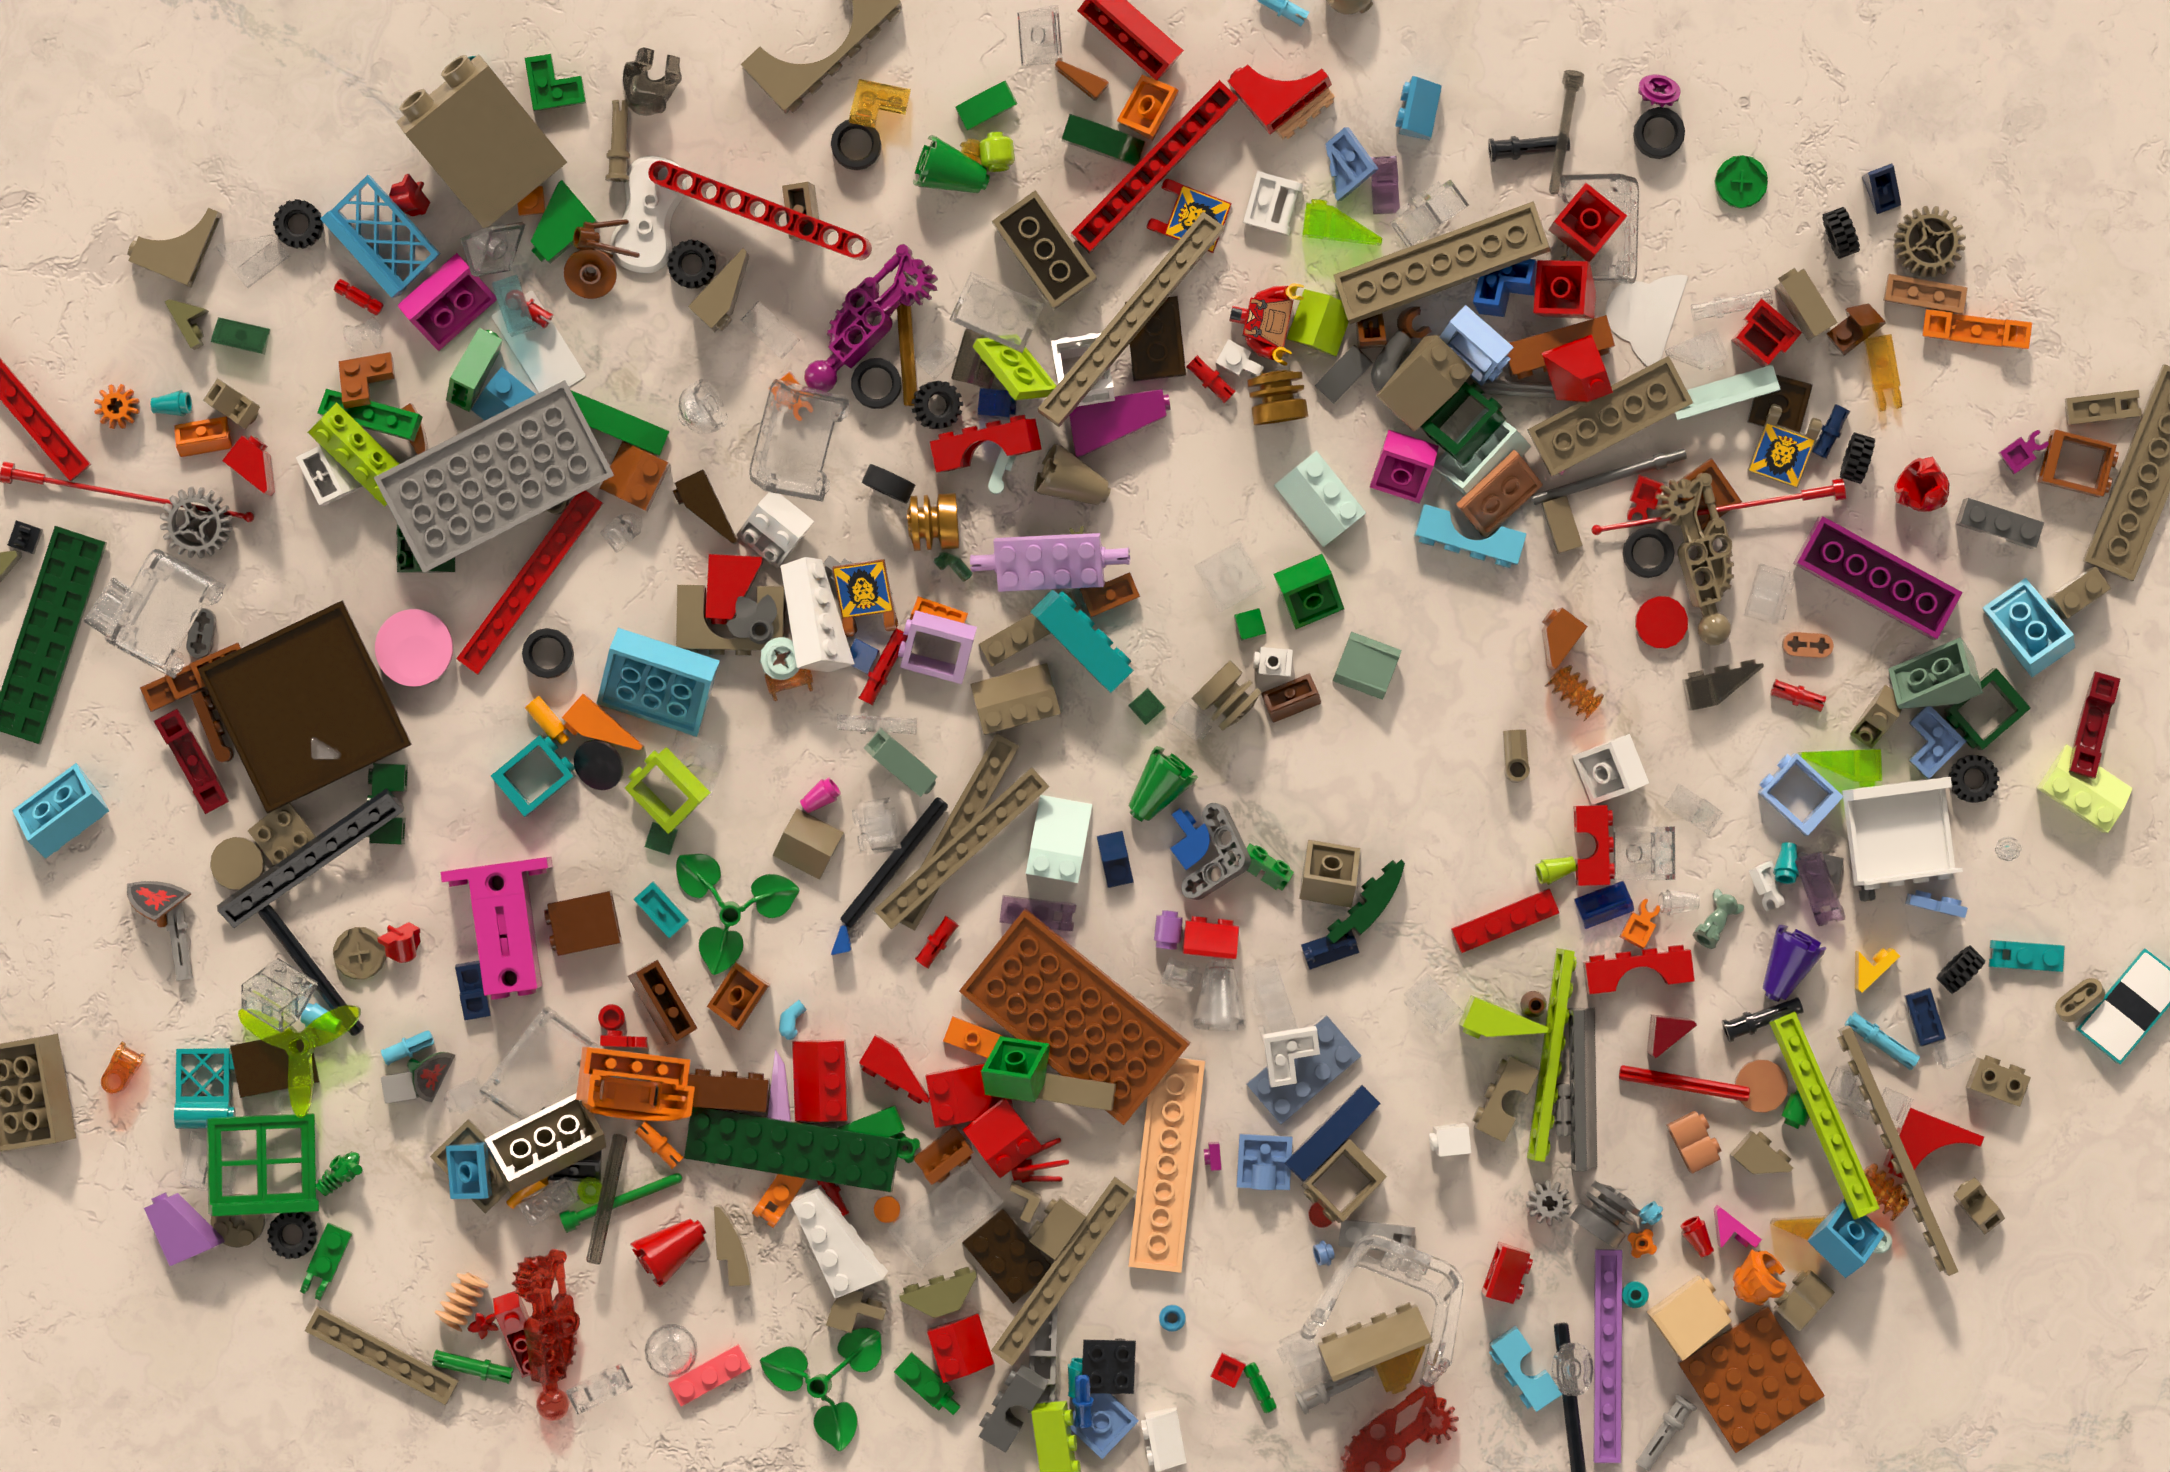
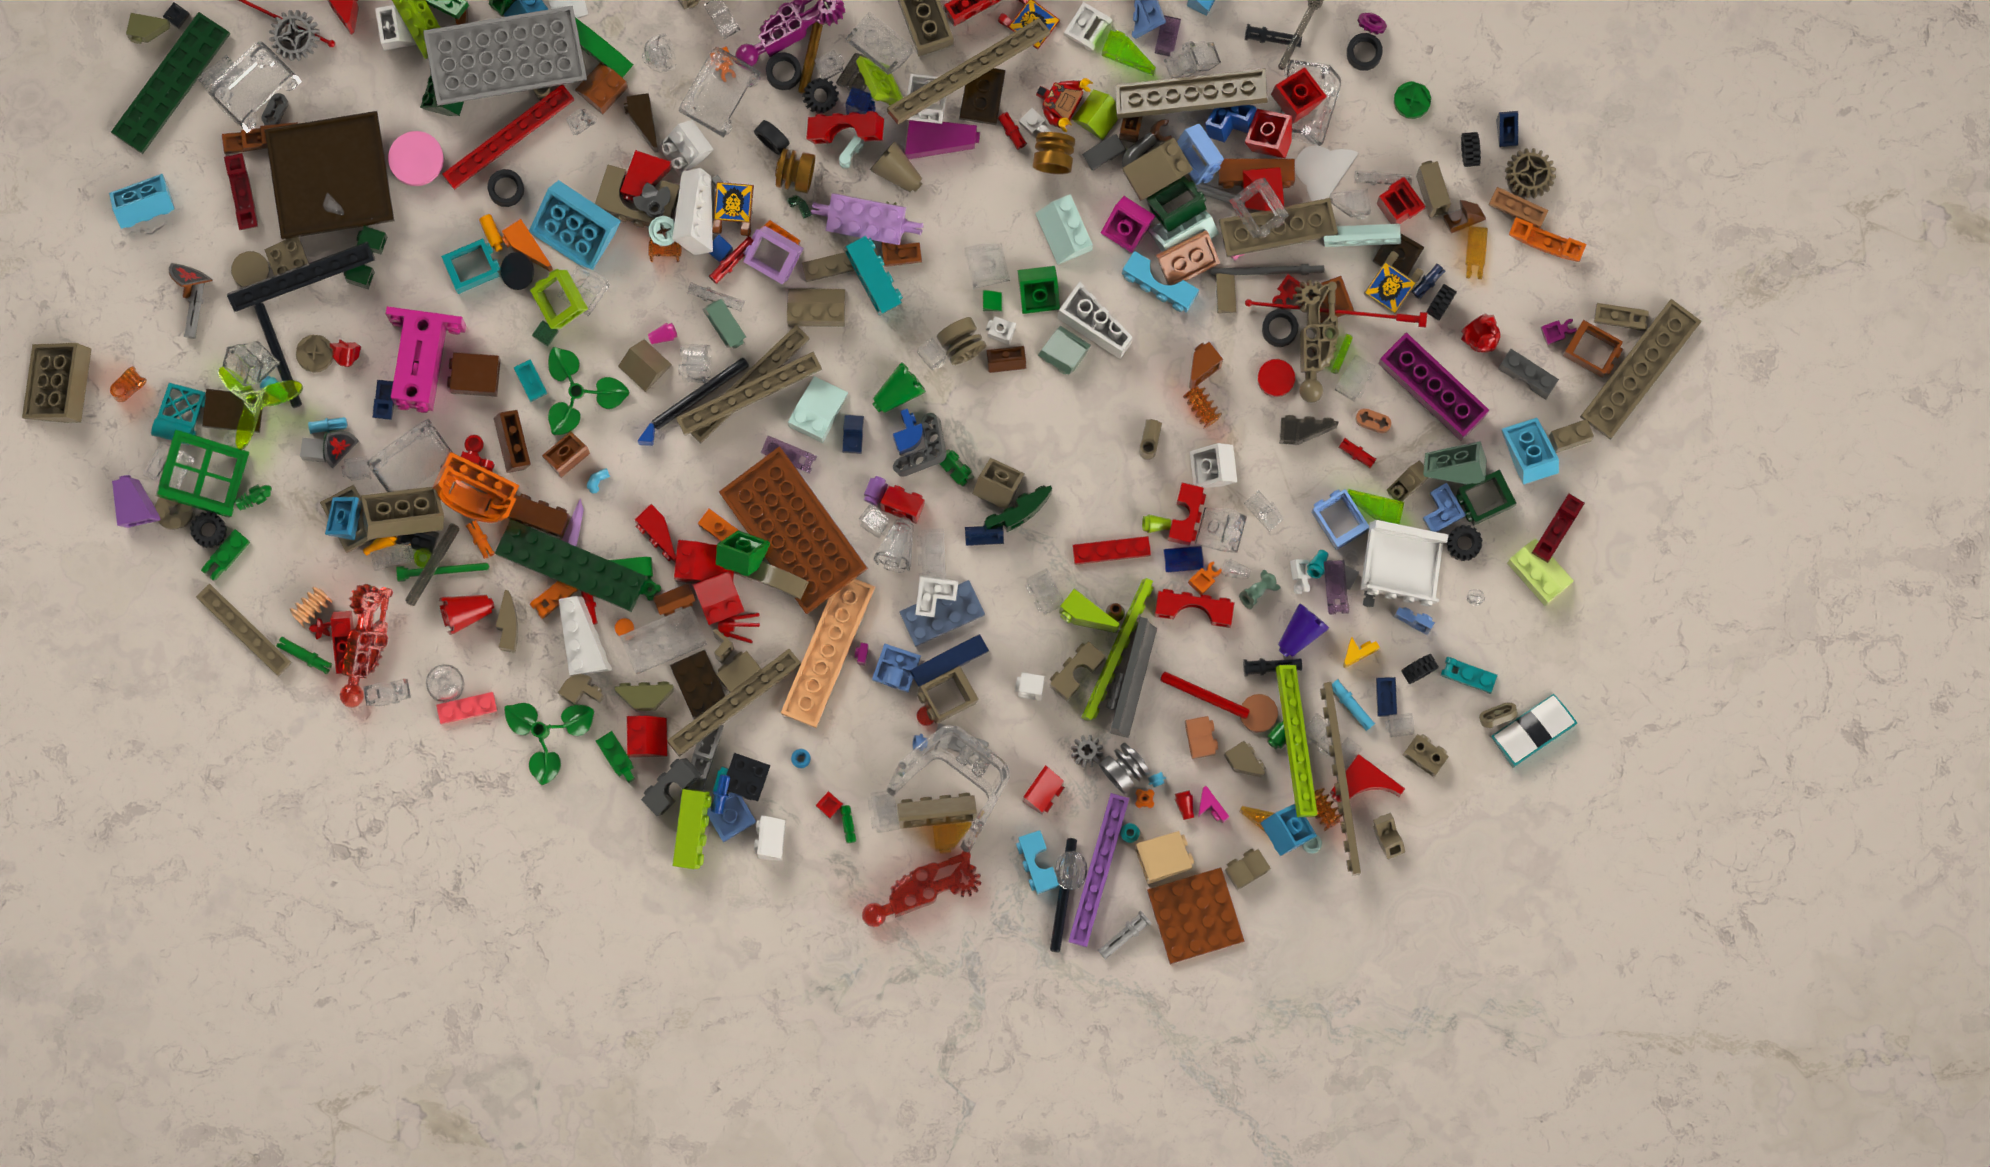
camera: 20 degrees right, 10 degrees down
(212, 727) = (263, 175): reddish brown plate -> none
(820, 1080) = (605, 526): red slope -> none
(936, 942) = (713, 455): red pin -> none
(1146, 706) = (904, 336): clear green tile -> none
(1324, 1396) = (890, 838): light grey pin -> none
(1397, 616) = (1093, 321): none -> white wedge
(1592, 388) = (1262, 186): none -> clear window
(1665, 1032) = (1203, 653): dark red slope -> none
(1741, 565) = (1342, 353): none -> clear neon green tile
(1754, 1280) = (1219, 843): orange helmet -> none

